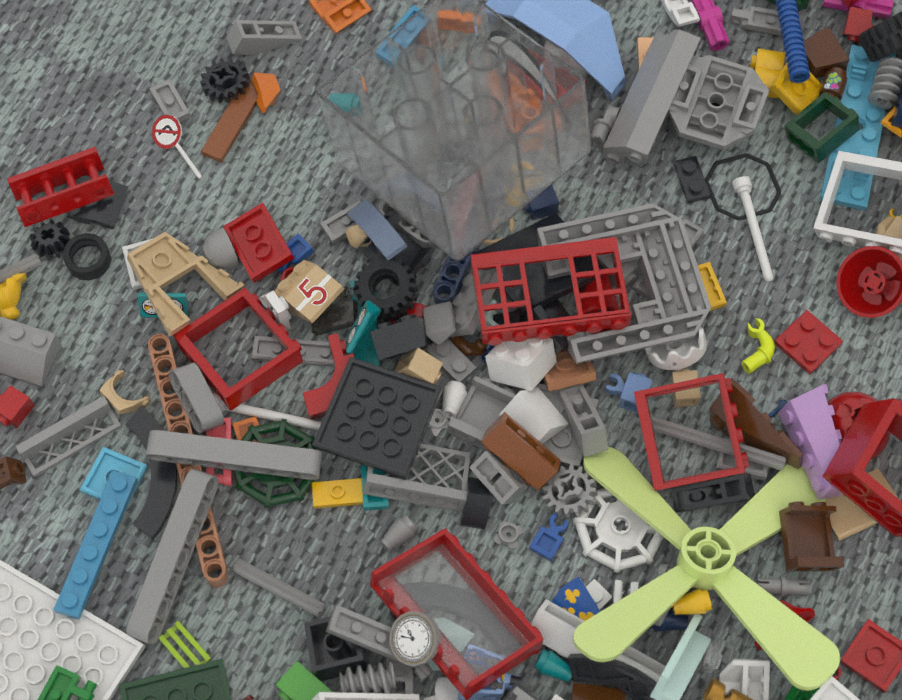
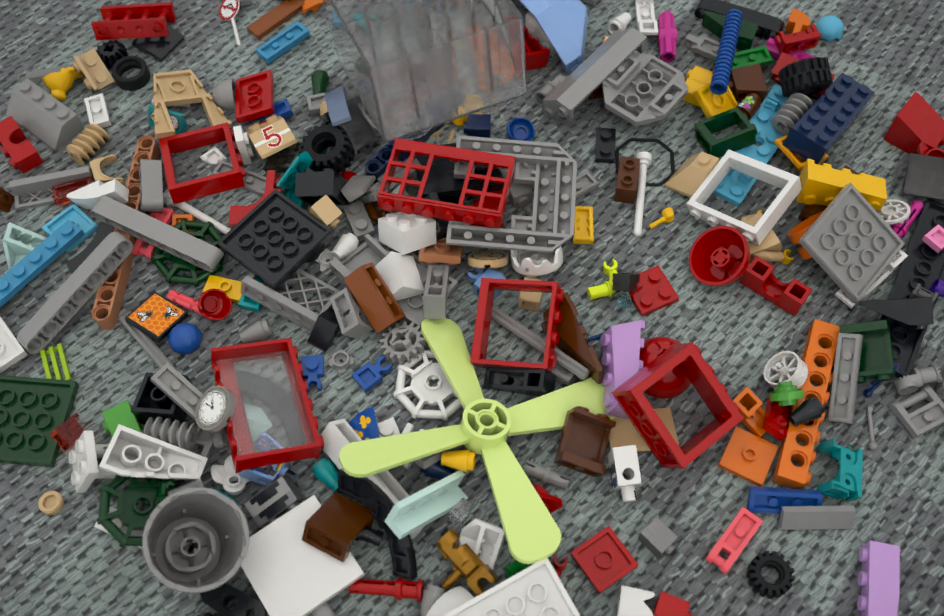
camera: 20 degrees right, 5 degrees down
(42, 268) = (93, 69): none -> tan bracket
(71, 320) = (97, 110): none -> white plate
(72, 520) = (19, 243): none -> light aqua slope
(80, 367) = (86, 142): none -> tan piece
(102, 437) = (61, 198): none -> clear red tile
(135, 428) = (89, 195): none -> white slope
(242, 334) = (213, 156): none -> white tile
(256, 159) = (282, 42): none -> dark azure plate
(276, 552) = (156, 316): none -> tile
(299, 523) = (183, 300): none -> coral axle
(320, 567) = (185, 338): none -> blue hair
(326, 200) = (319, 81): none -> dark green cone
(339, 517) = (214, 304): none -> red hair
(483, 553) = (312, 369): none -> blue plate
(592, 188) = (520, 129): none -> blue hair
(618, 365) = (493, 258): none -> tan tile
(647, 17) = (619, 22): none -> white cone
(735, 217) = (627, 180): none -> reddish brown brick
(783, 345) = (625, 283): none -> pearl dark grey piece
(794, 246) = (668, 216): none -> yellow hand
(804, 189) = (692, 173): none -> tan slope
(814, 21) = (751, 56): none -> green plate
(863, 556) = (625, 461): none -> white torso

